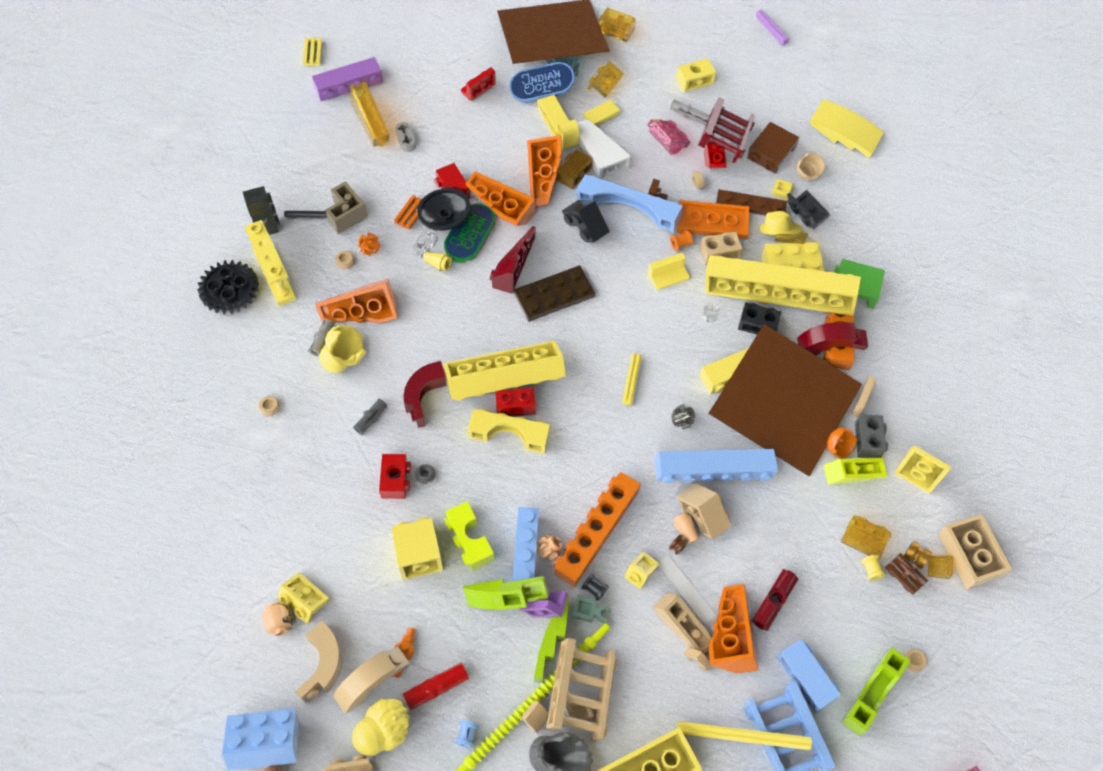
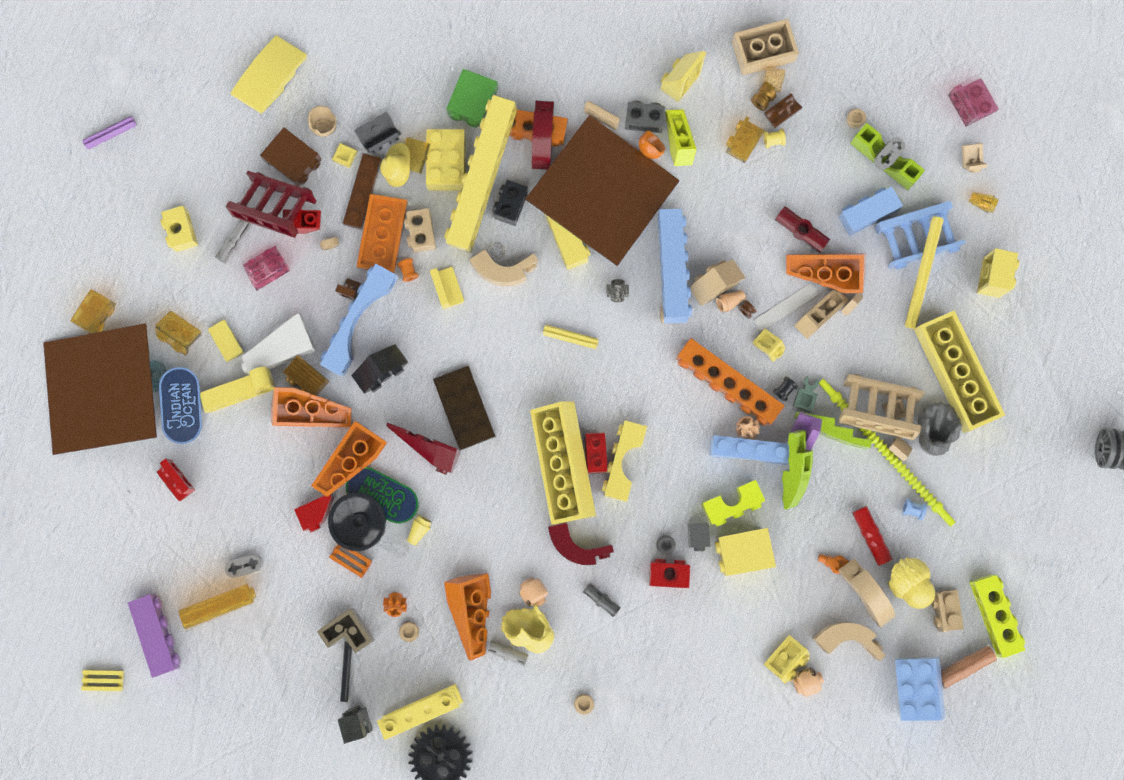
camera: 85 degrees left, 20 degrees up
(378, 354) = (533, 592): none -> light nougat head
(433, 502) = (698, 536): none -> dark grey brick
(690, 304) = (501, 275): none -> tan arch
(877, 696) = (886, 150): none -> light grey beam

